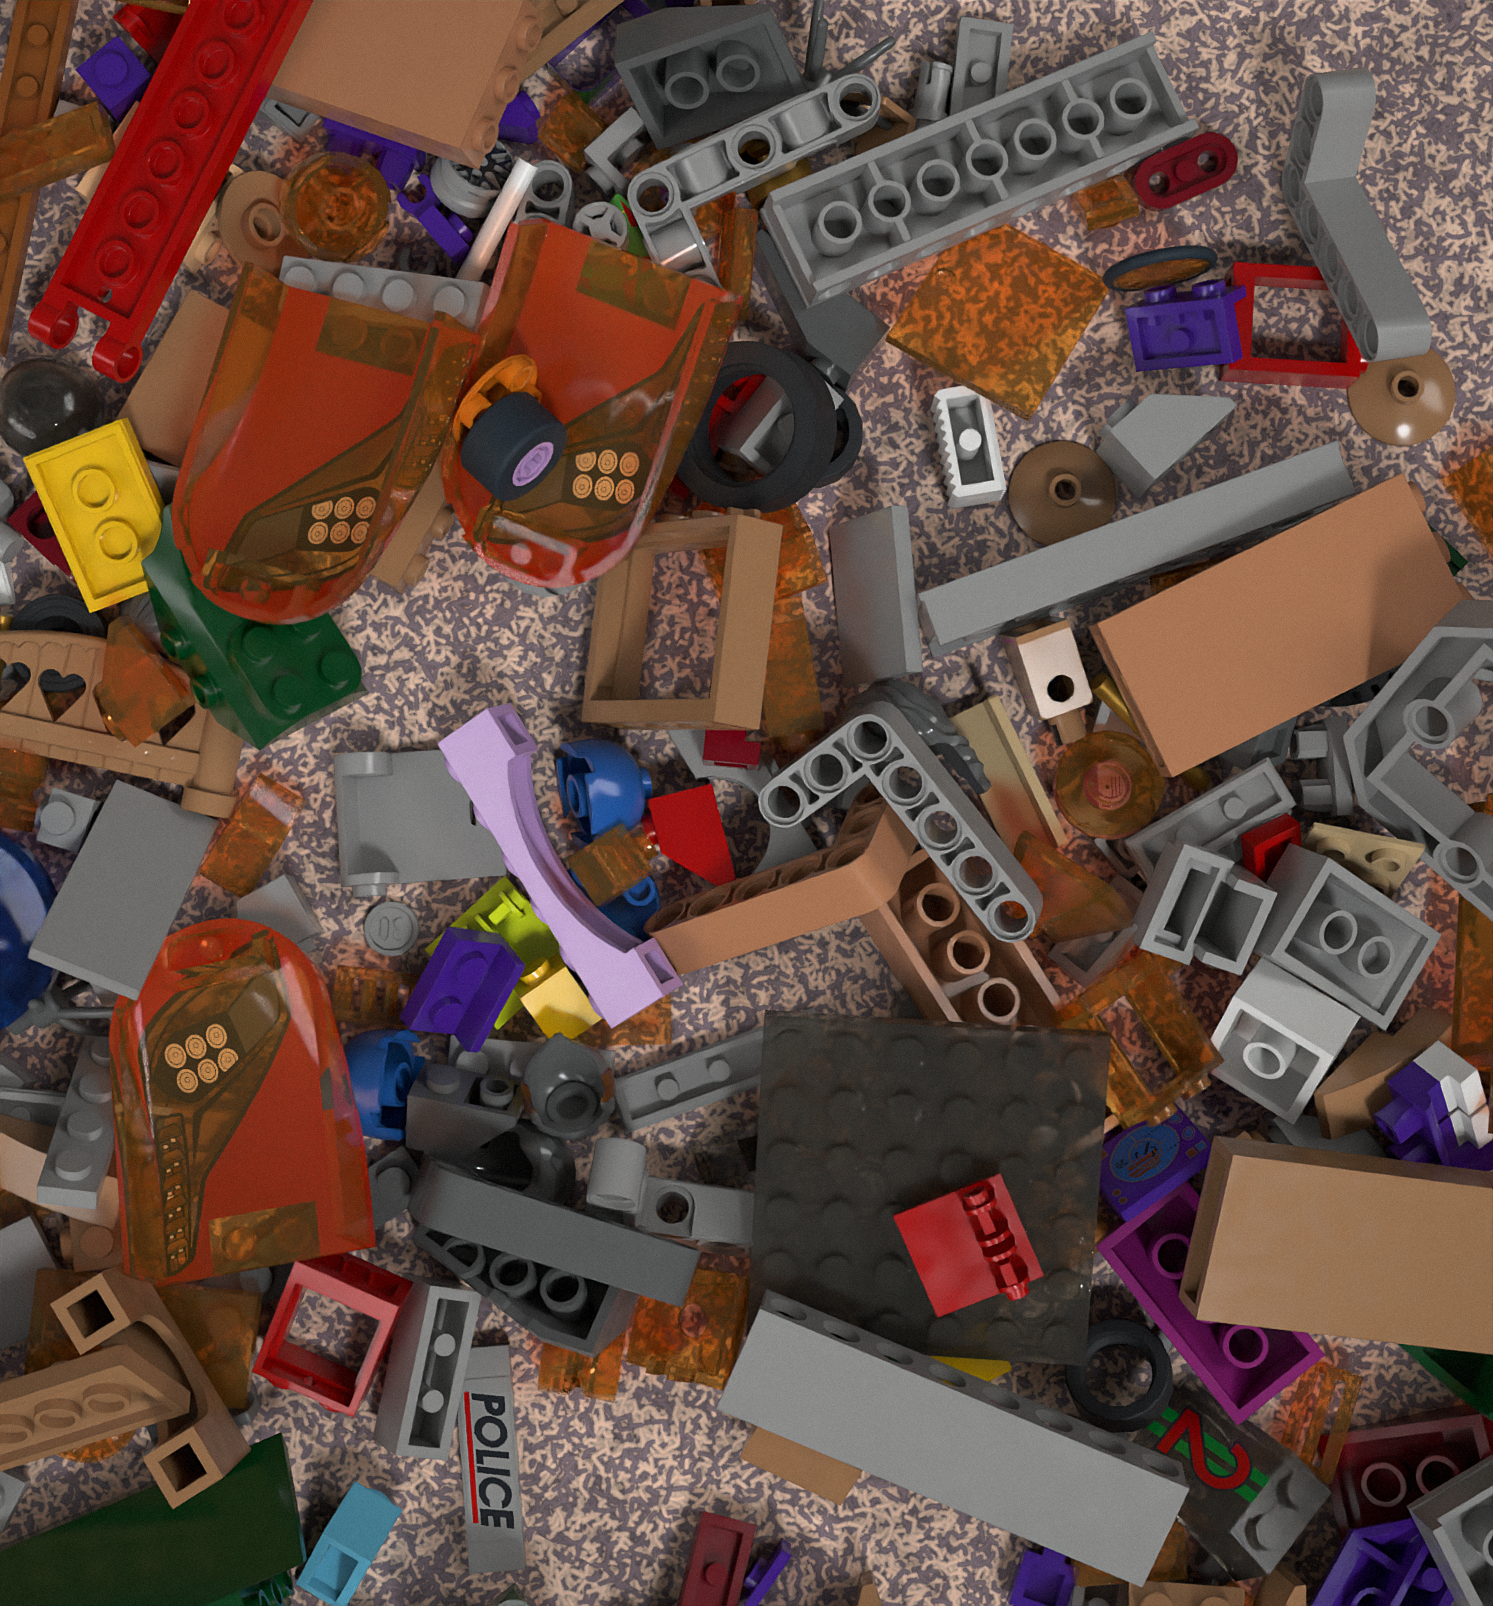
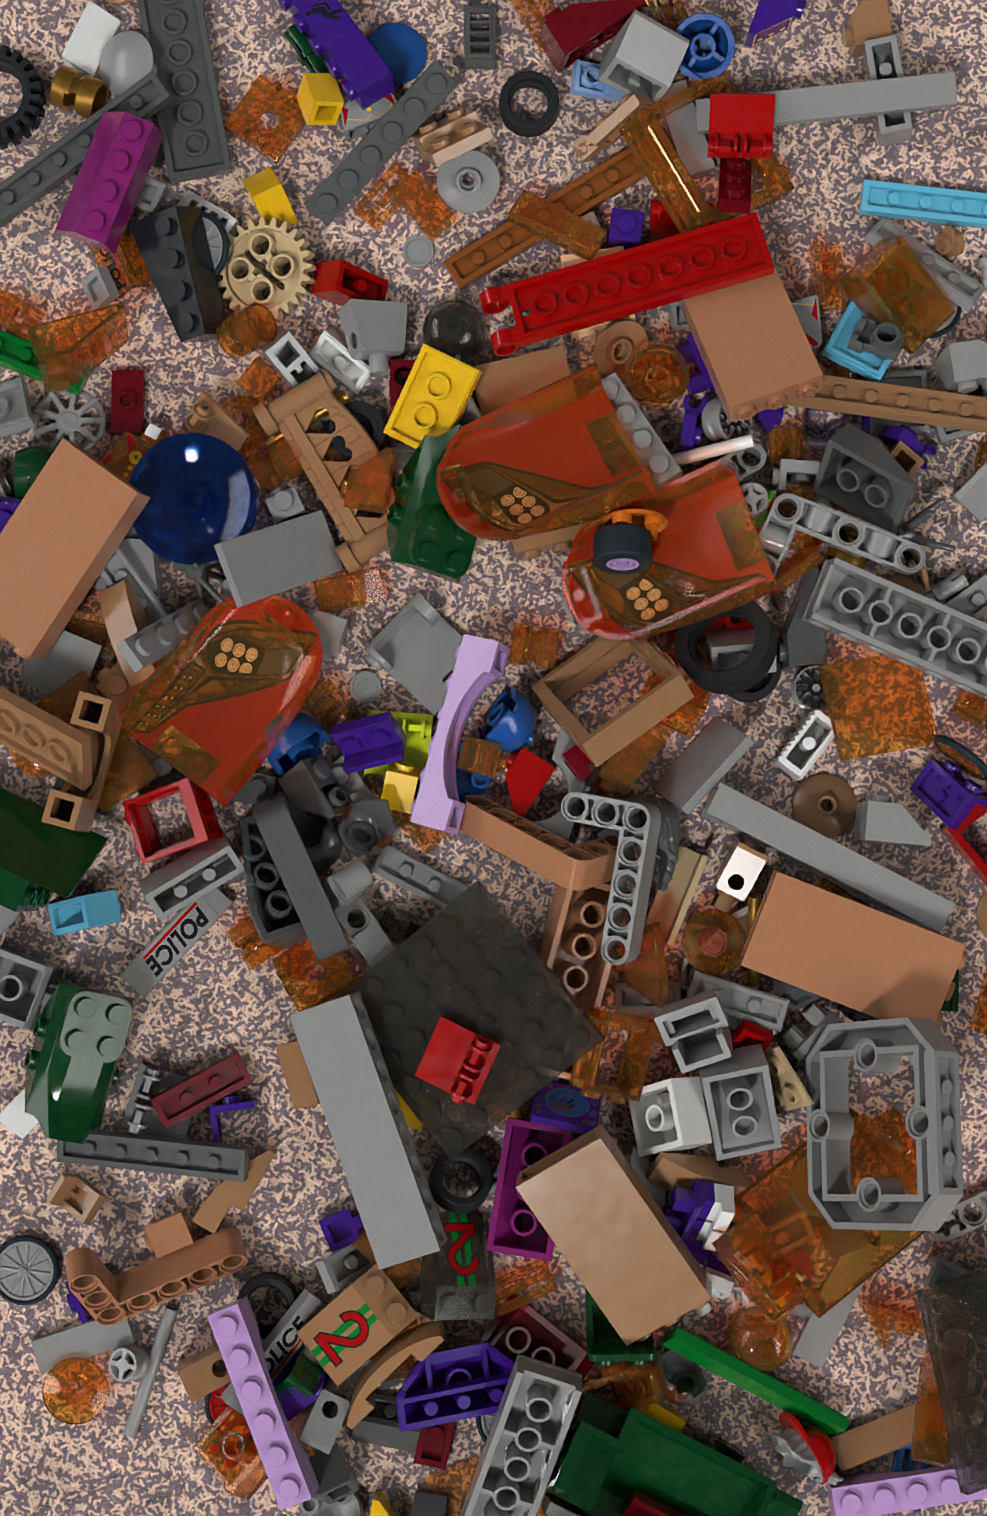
camera: 45 degrees right, 0 degrees up
(534, 670) = (534, 645): none -> clear orange wheel
(902, 382) = (808, 690): none -> light grey wheel

